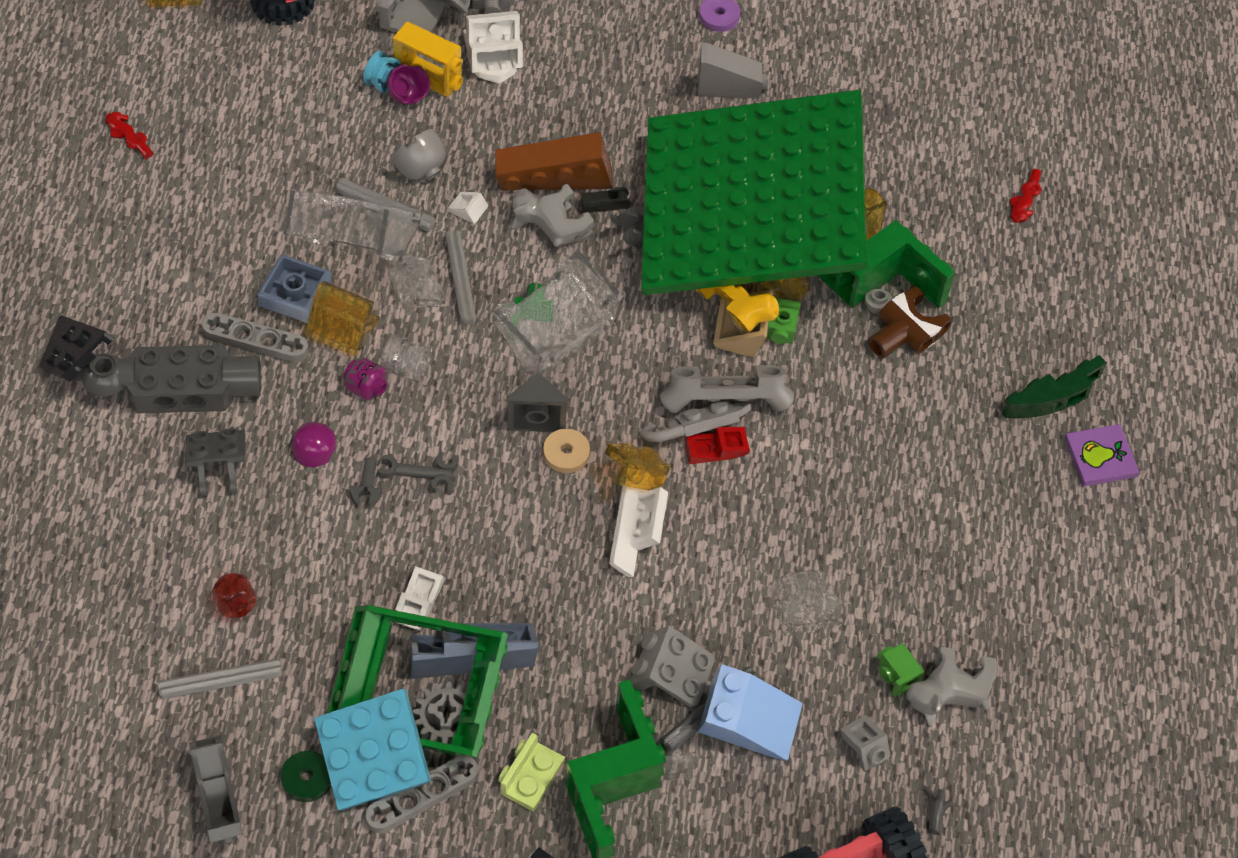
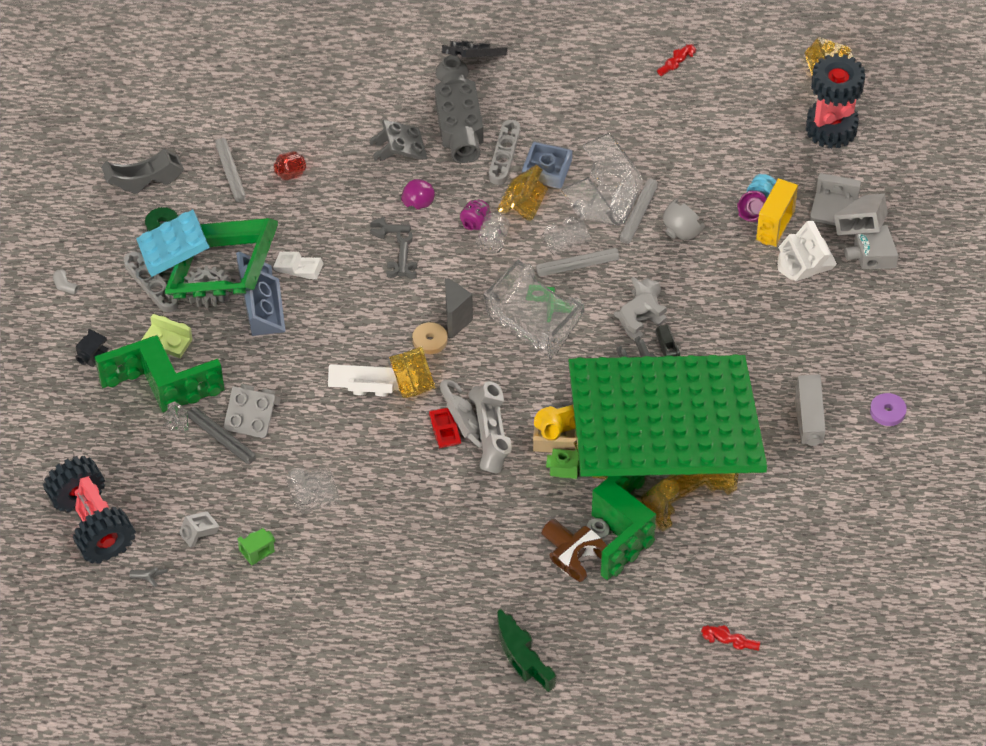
camera: 90 degrees right, 5 degrees down
(468, 206) = (646, 261): white slope -> none
(550, 164) = (689, 306): dark orange wedge -> none
(750, 713) = (212, 451): light blue slope -> none
(952, 685) = (244, 576): light grey animal -> none
(1101, 455) = (466, 688): medium lavender tile -> none

